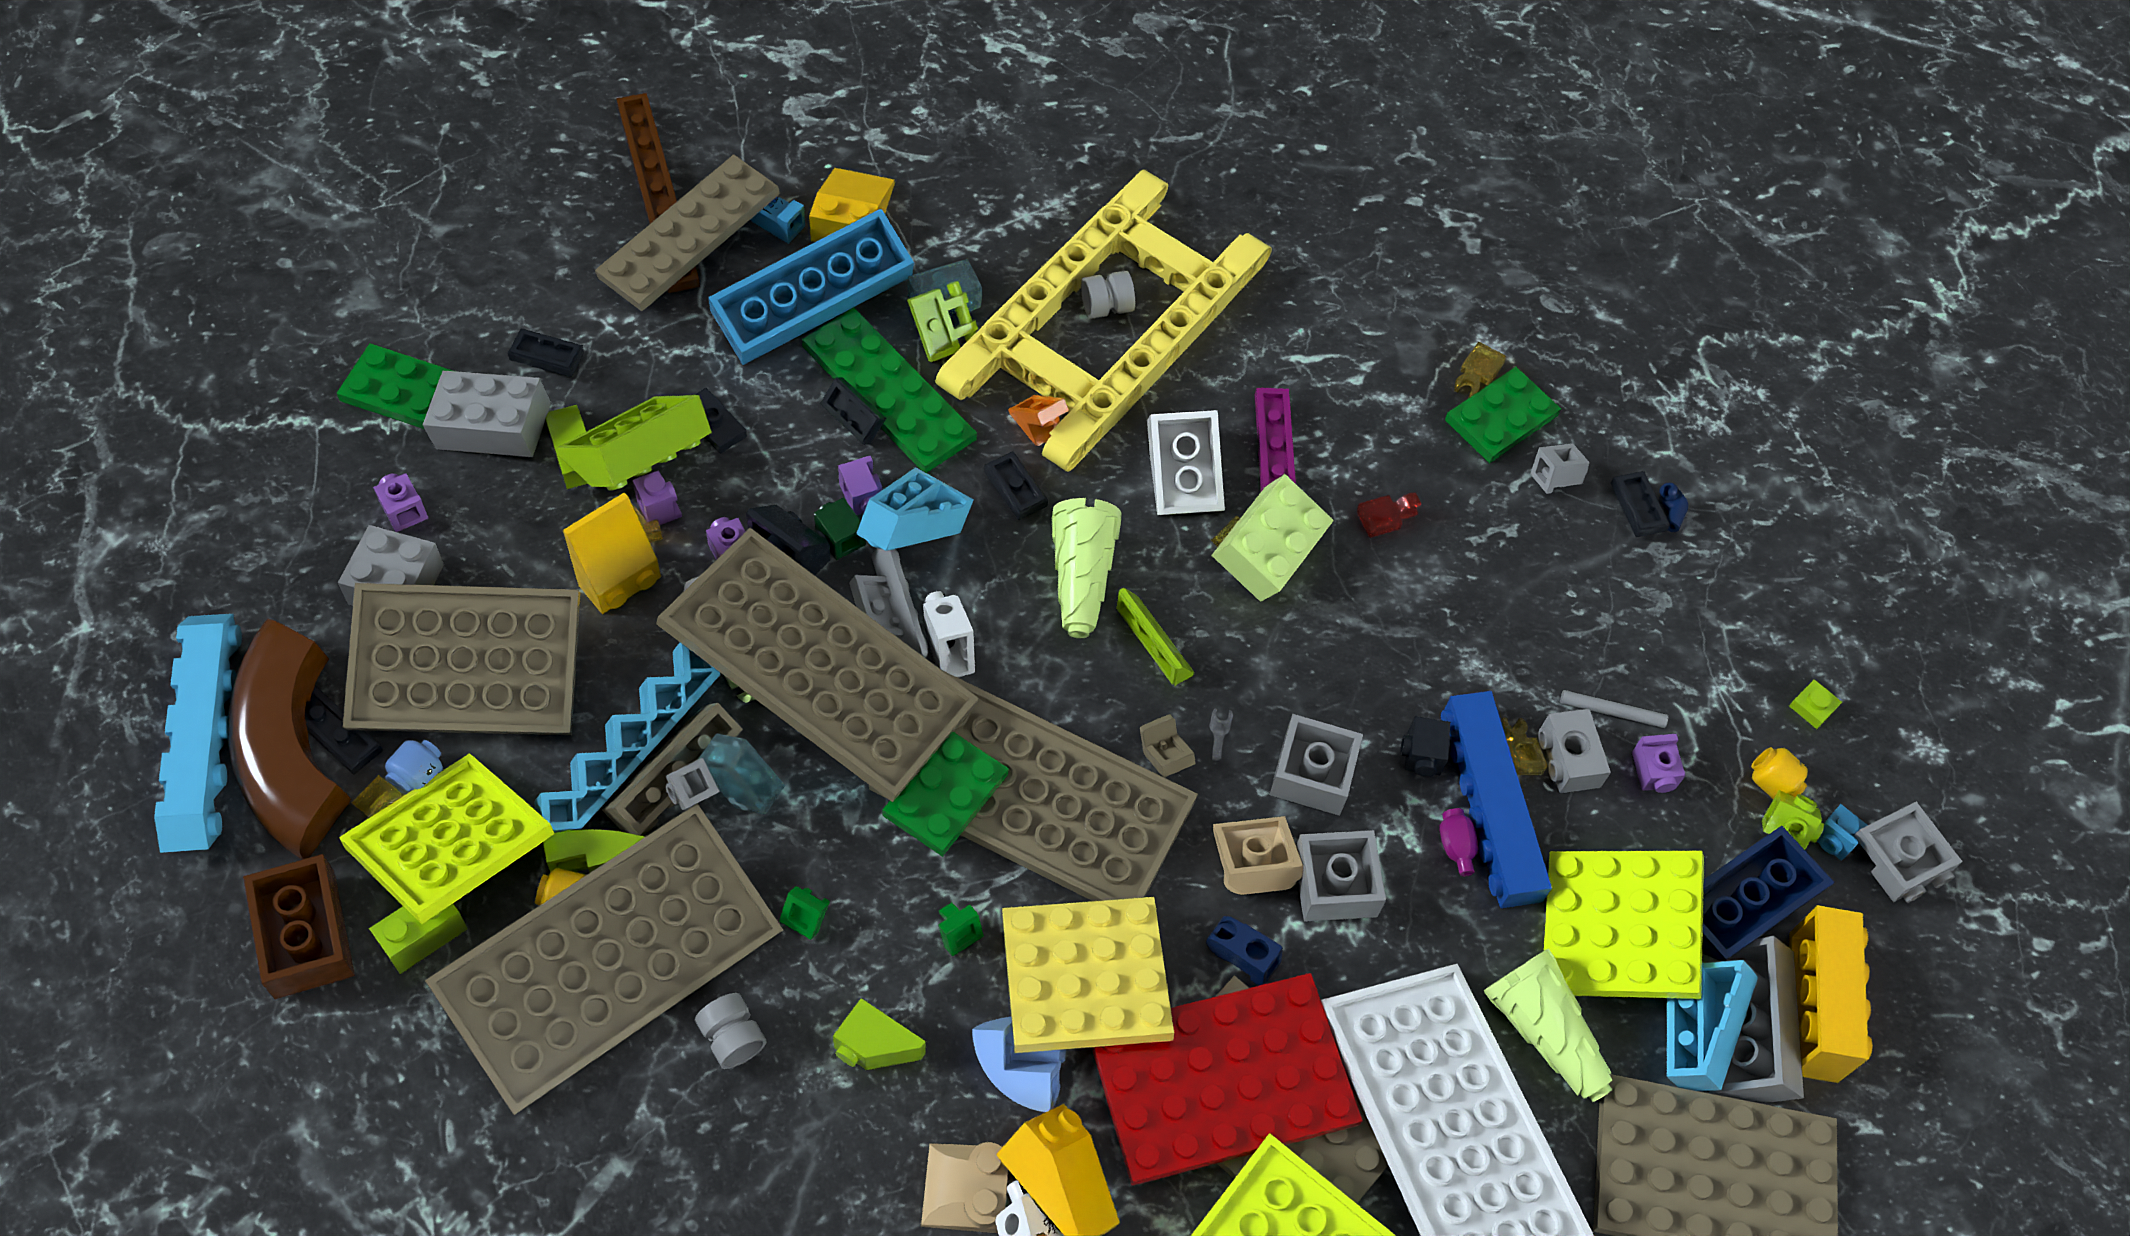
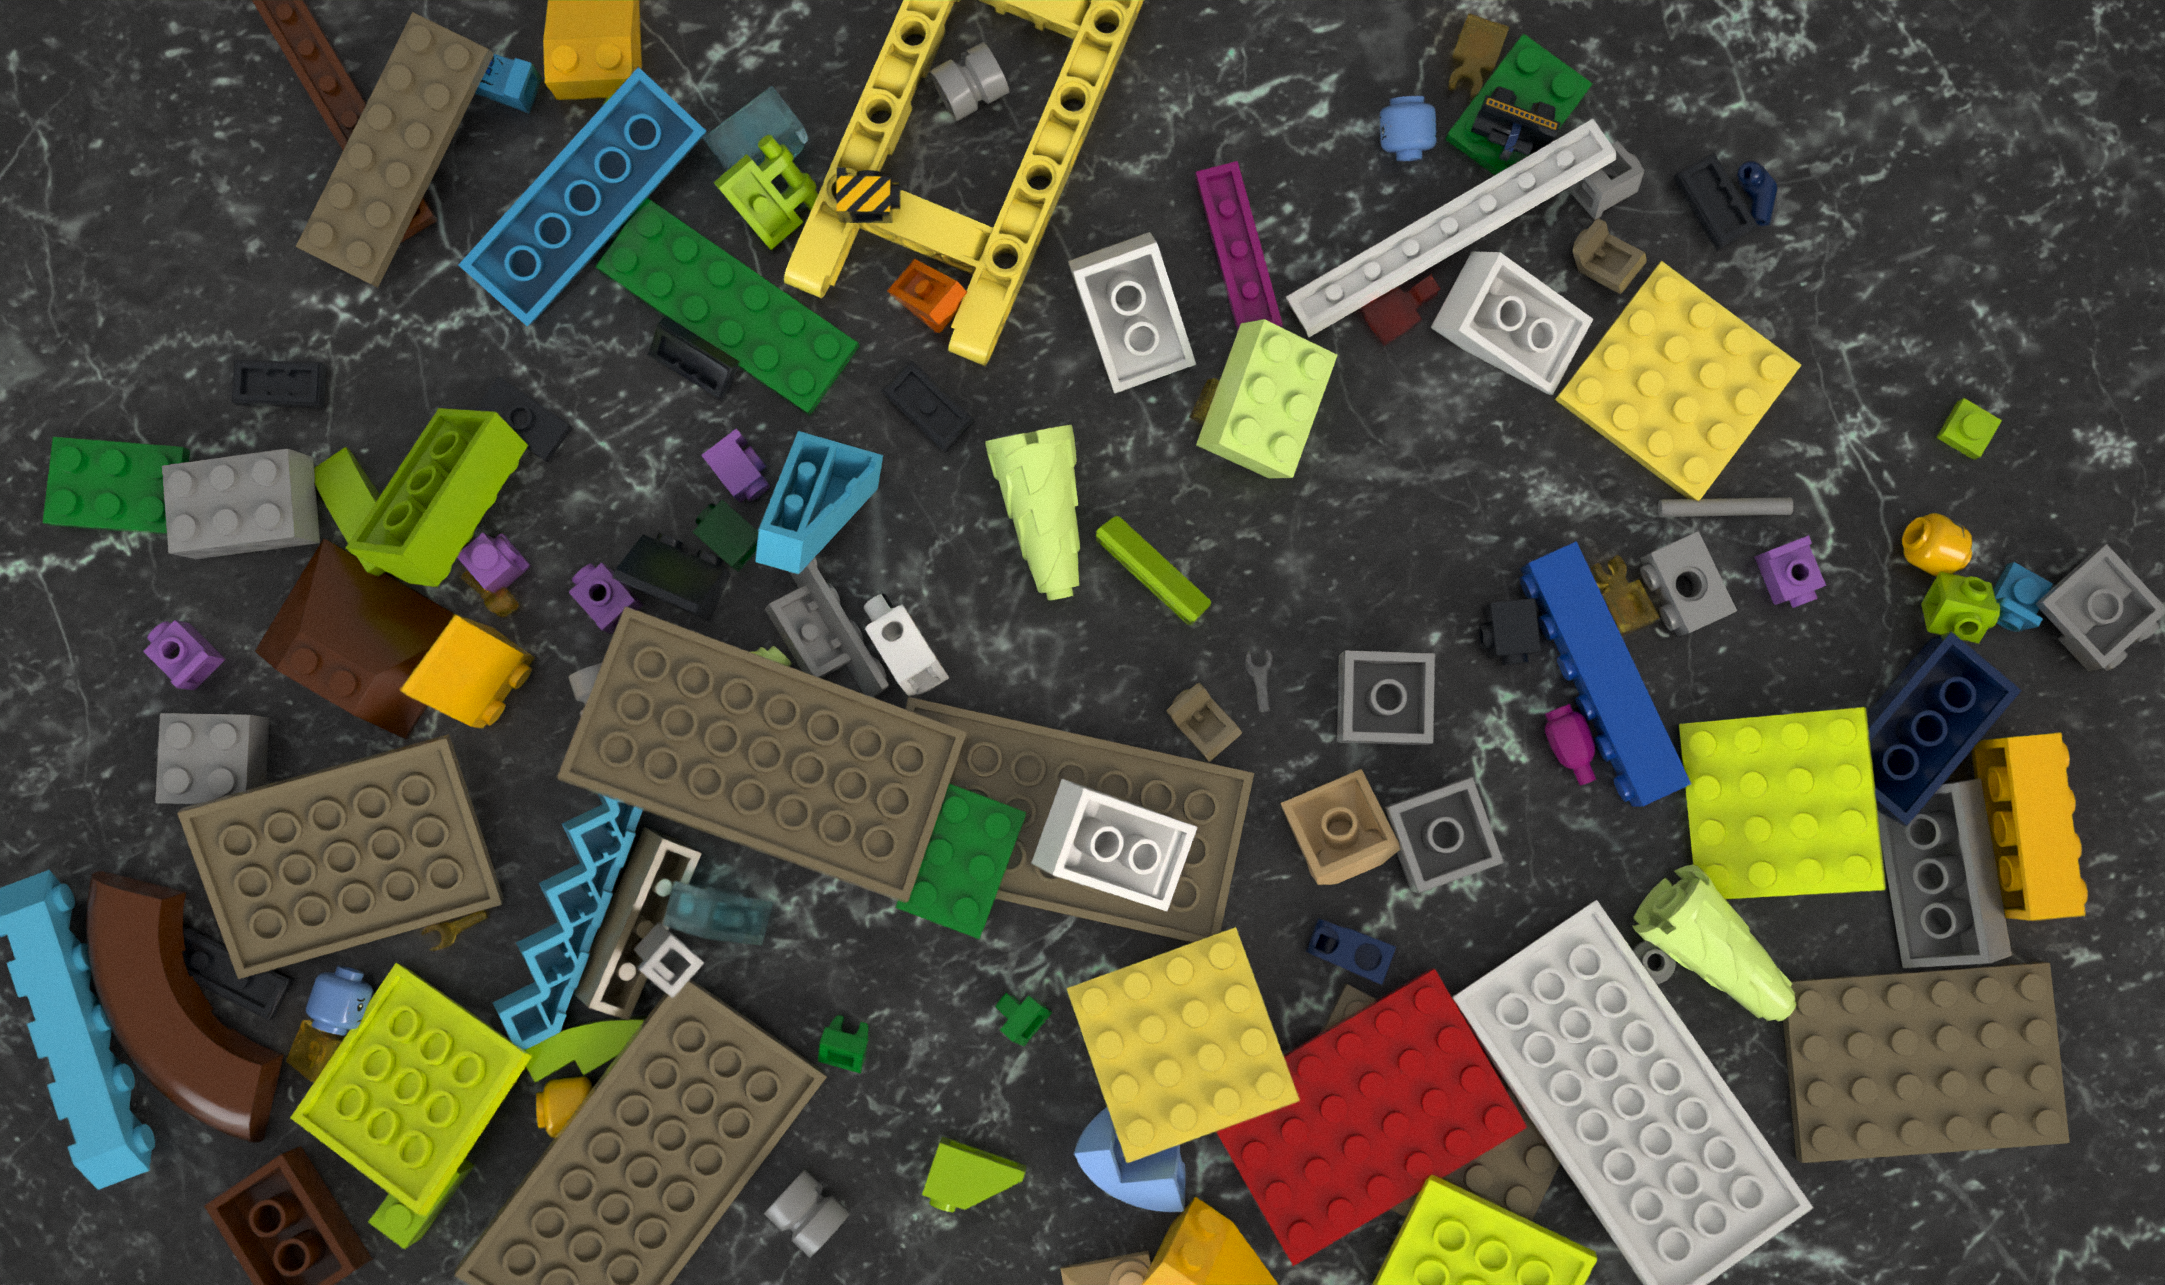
camera: 10 degrees left, 25 degrees up
(519, 746) = (449, 931): none -> clear yellow hand
(526, 524) = (355, 638): none -> reddish brown slope
(1013, 334) = (866, 197): none -> brick
(1072, 808) = (1113, 845): none -> white slope
(1419, 400) = (1408, 127): none -> medium blue head
(1437, 464) = (1451, 227): none -> white plate
(1471, 539) = (1512, 320): none -> white slope
(1498, 411) = (1514, 126): none -> black hips
(1508, 1032) = (1667, 966): none -> light grey plate
(1550, 518) = (1607, 257): none -> dark tan bracket
(1591, 616) = (1678, 382): none -> light yellow plate
(1707, 1029) = (1892, 922): medium azure wedge -> none

